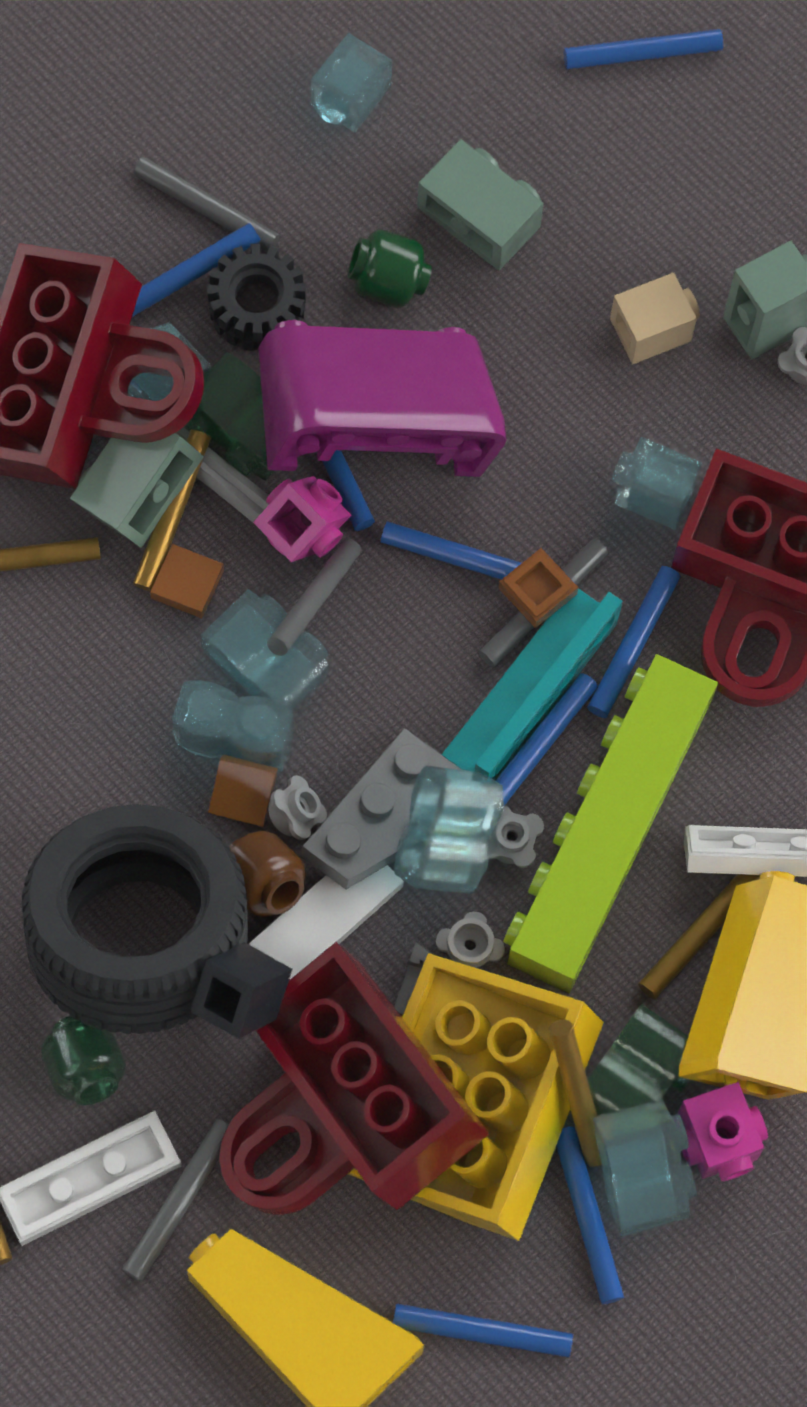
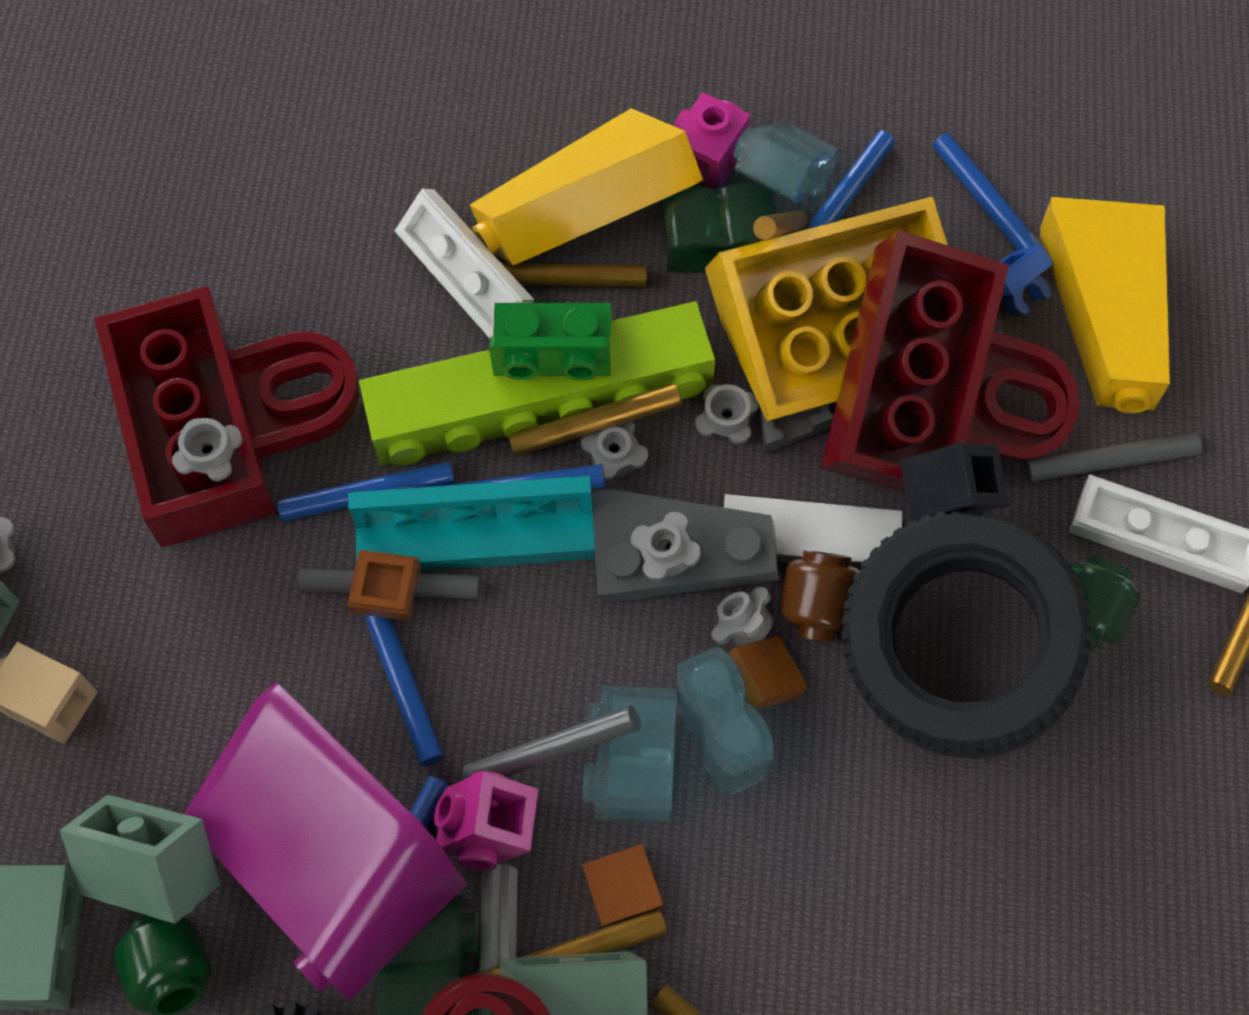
camera: 125 degrees left, 5 degrees down
(383, 795) = (670, 562): none -> light grey plate
(391, 1266) = (1024, 273): none -> blue tile
(448, 829) = (662, 473): clear light blue brick -> none
(464, 290) = (141, 858): none -> sand green brick
(542, 835) = (595, 419): none -> pearl gold bar
(625, 834) = (551, 340): none -> green bracket
(655, 482) = (205, 570): clear light blue brick -> none
(736, 505) = (202, 433): none -> light grey plate

